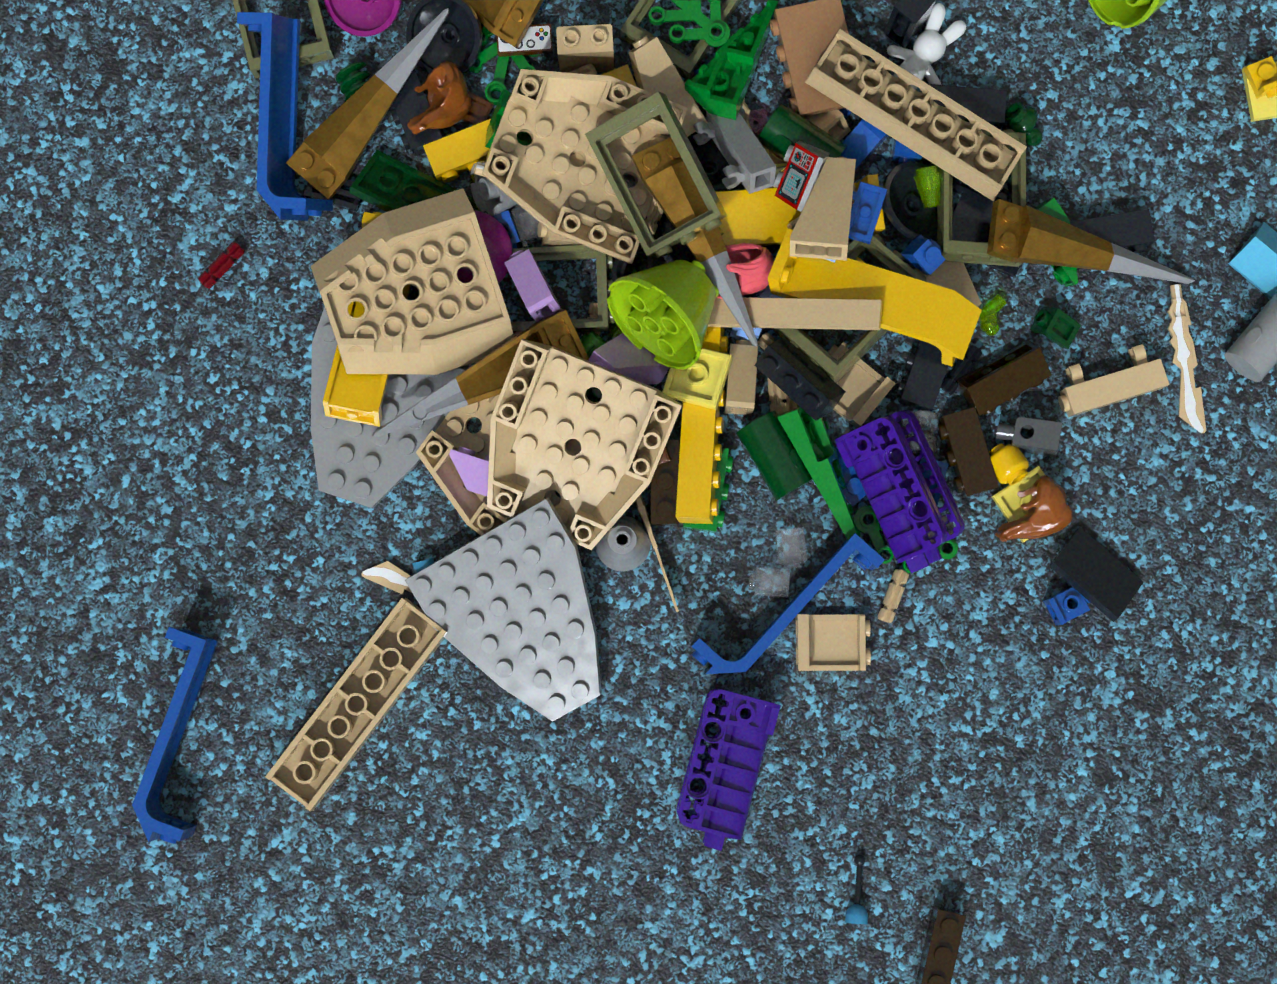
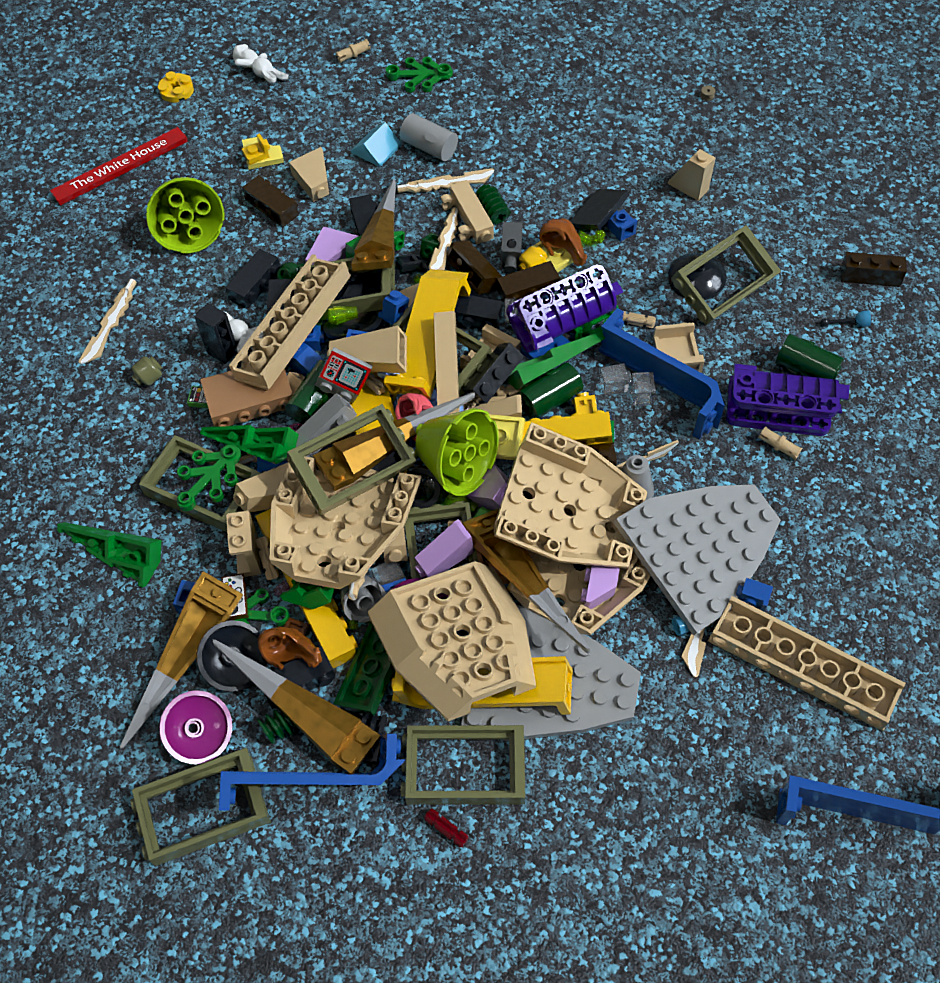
camera: 95 degrees left, 25 degrees down
(273, 348) = (514, 733): none -> olive door
(450, 662) = (754, 593): none -> blue brick
(665, 748) = (780, 443): none -> tan pin
(750, 500) = (584, 403): none -> yellow bracket
(785, 817) = (808, 359): none -> dark green piece
(944, 693) = (707, 279): none -> black dish
(977, 784) = (754, 252): none -> olive door
(1019, 71) = (253, 278): none -> black brick
(1028, 297) = (412, 262): none -> black tile
(1044, 555) = (591, 240): none -> clear neon green arm
(1057, 342) = (445, 238): none -> tan sword
(1059, 177) = (330, 245): none -> lavender slope
(1121, 418) = (493, 203): none -> dark green piece
(1144, 725) = (694, 175): none -> tan slope
(1166, 98) = (270, 201): none -> dark brown brick
(1214, 161) = (311, 173): none -> tan slope

